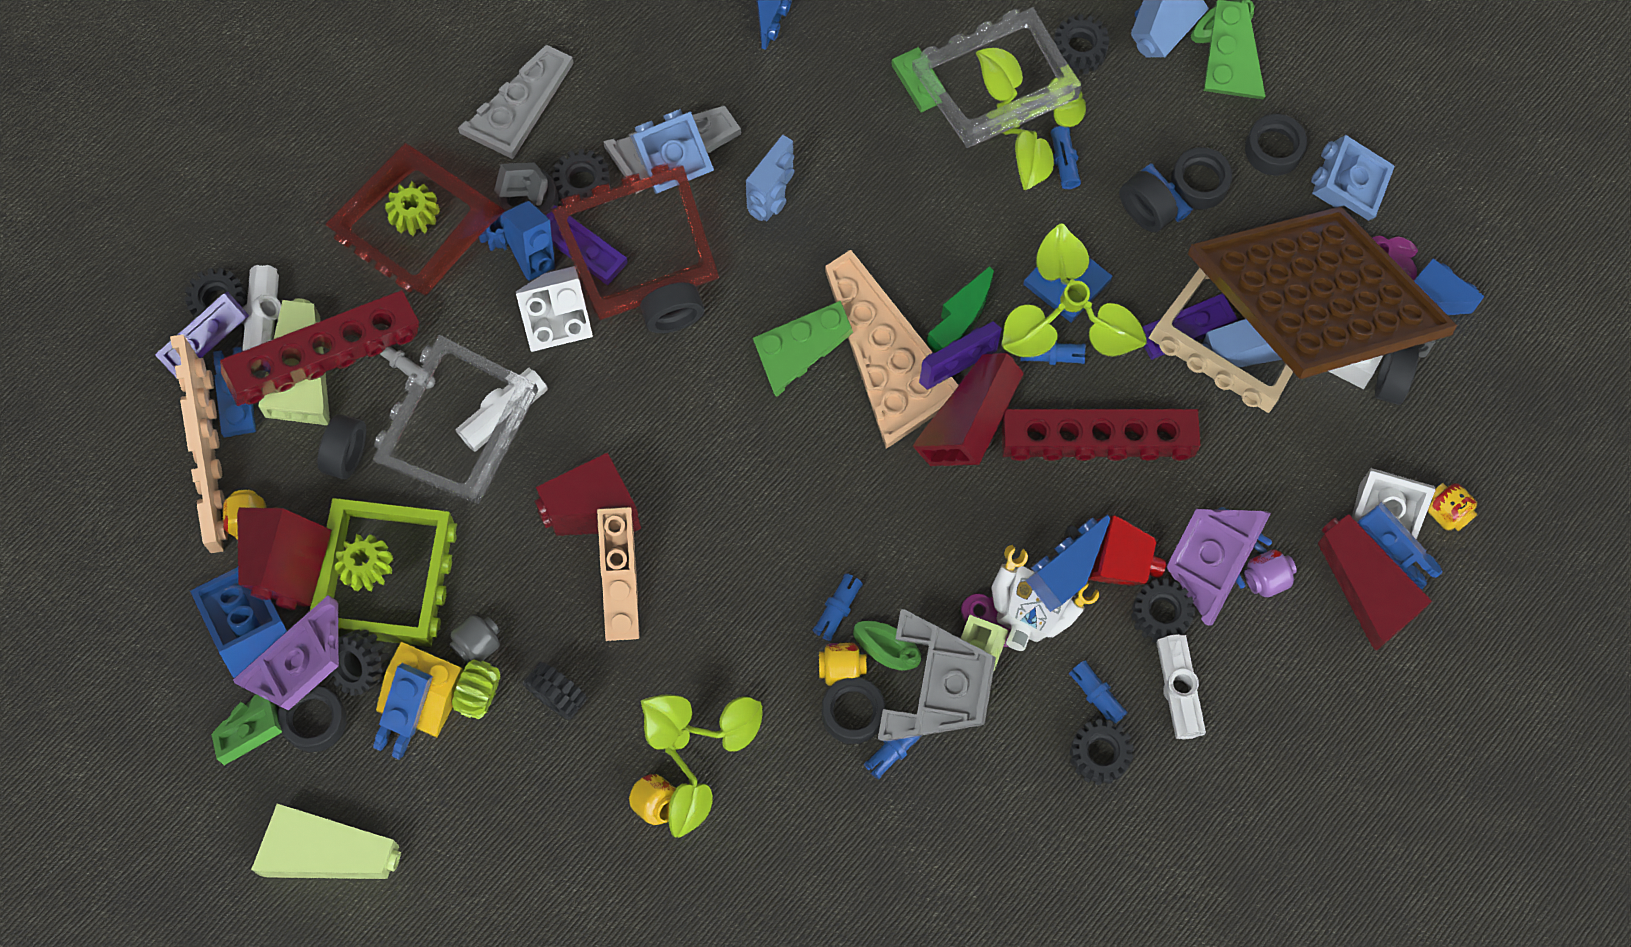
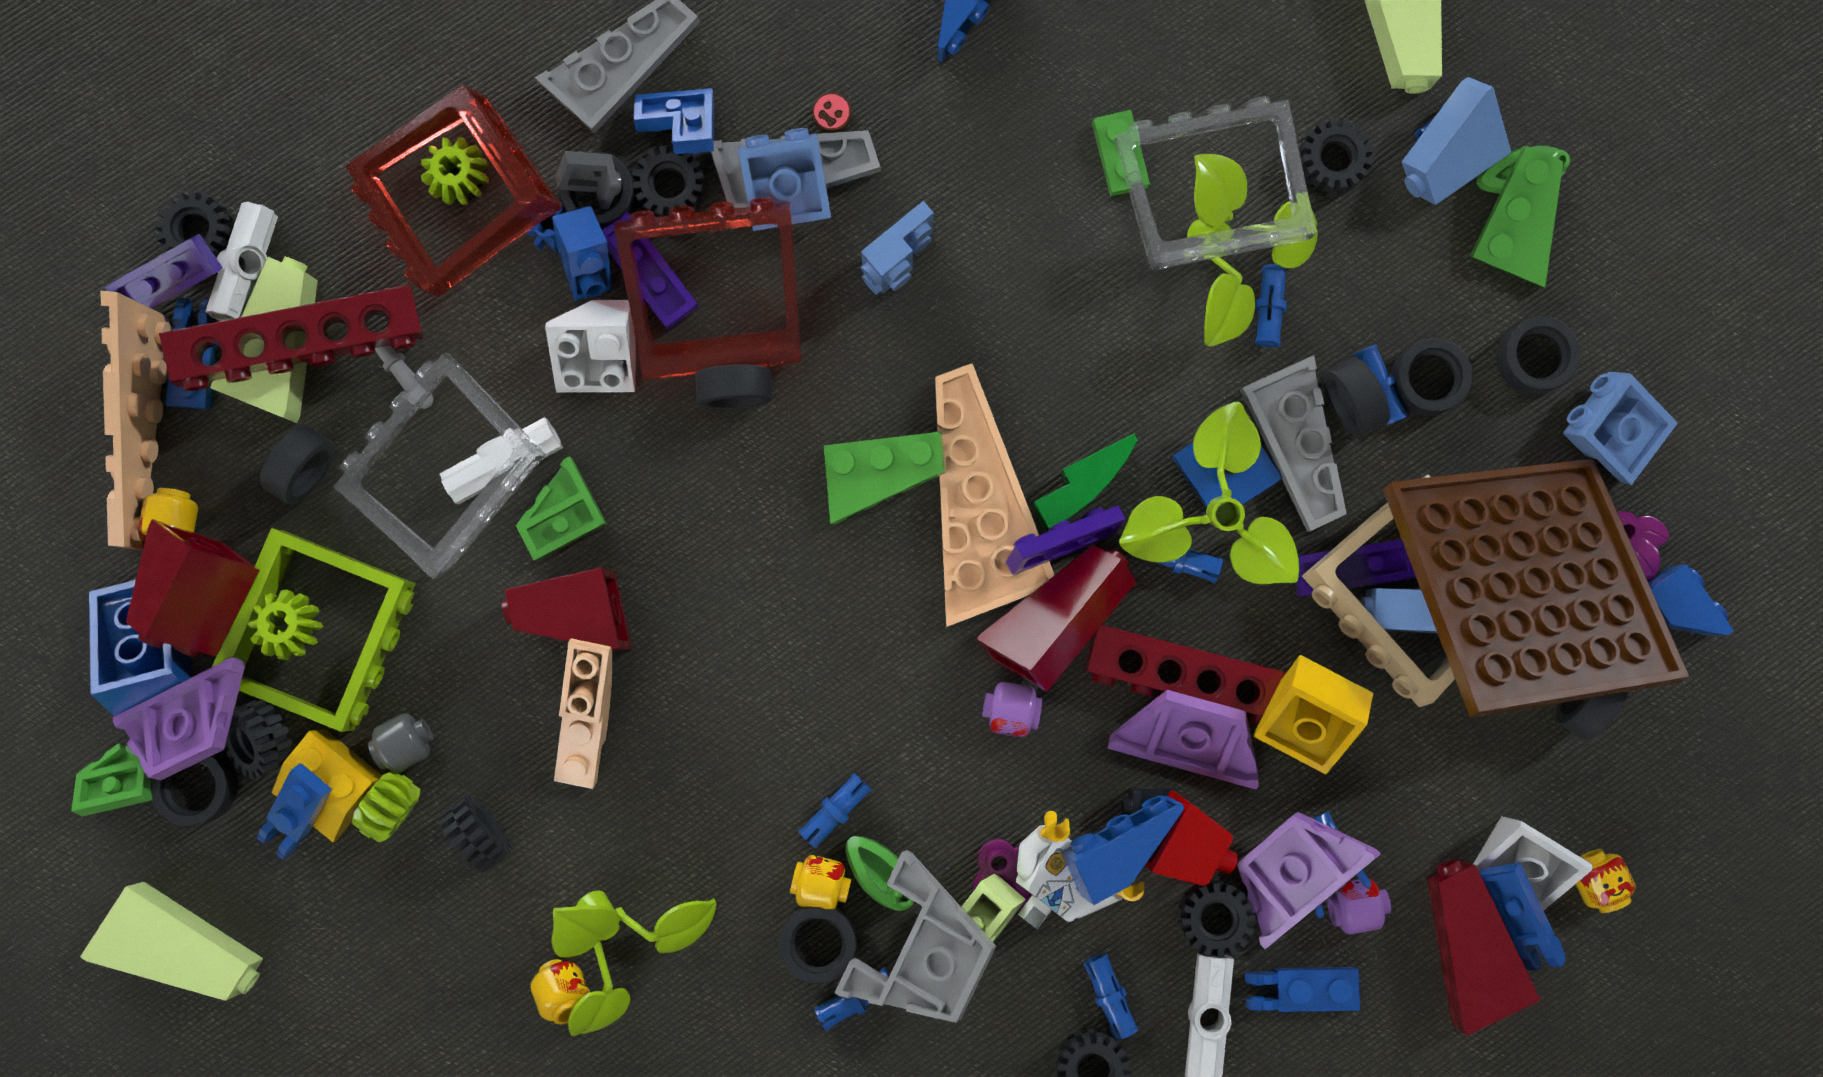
camera: 15 degrees right, 15 degrees up
(559, 438) = (561, 513): none -> bright green wing
(583, 125) = (685, 112): none -> blue plate
(692, 100) = (831, 113): none -> tile
(956, 494) = (1012, 709): none -> medium lavender head
(1101, 477) = (1191, 737): none -> medium lavender wing
(1115, 246) = (1296, 434): none -> light grey wing
(1188, 430) = (1314, 715): none -> yellow slope
(1251, 649) = (1307, 989): none -> blue hinge

